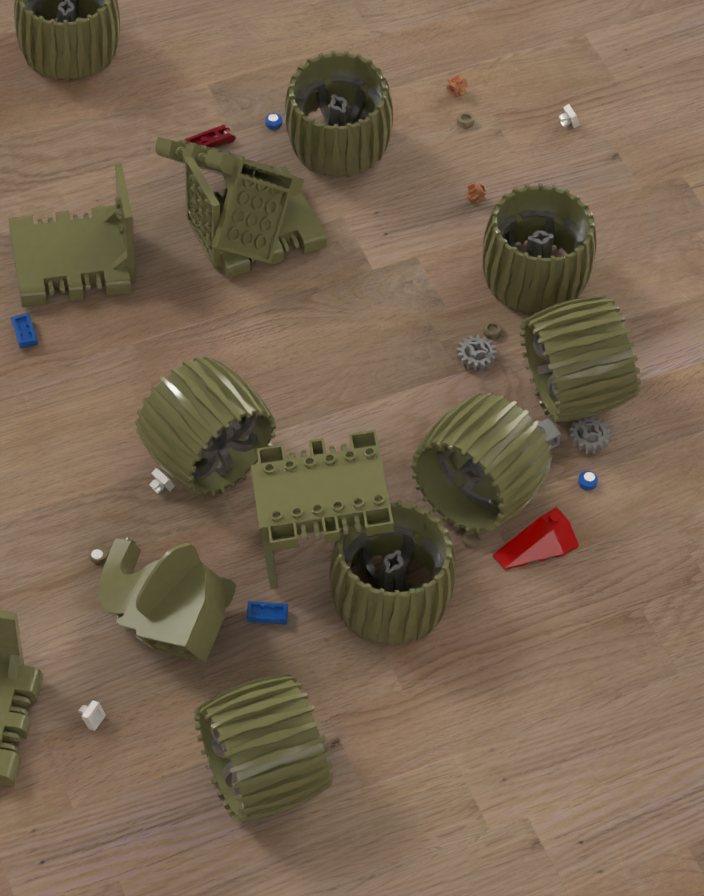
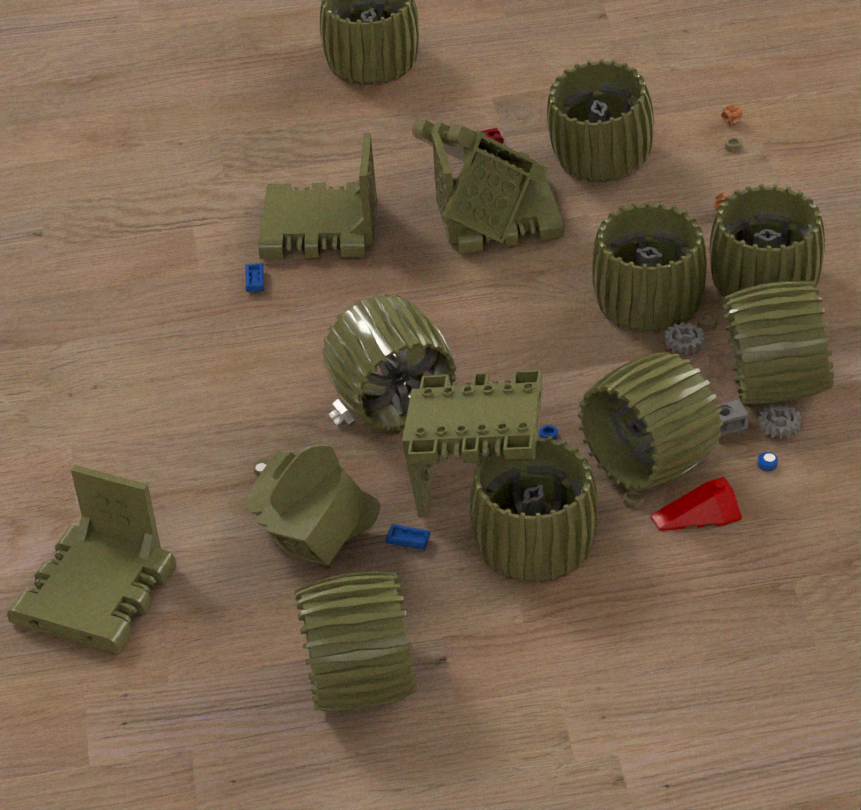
camera: 20 degrees right, 10 degrees down
(92, 715) = (211, 601): white tile -> none
(273, 121) = (542, 131): blue tile -> none
(431, 309) = (649, 266): none -> olive wheel
(569, 117) = (837, 148): white tile -> none

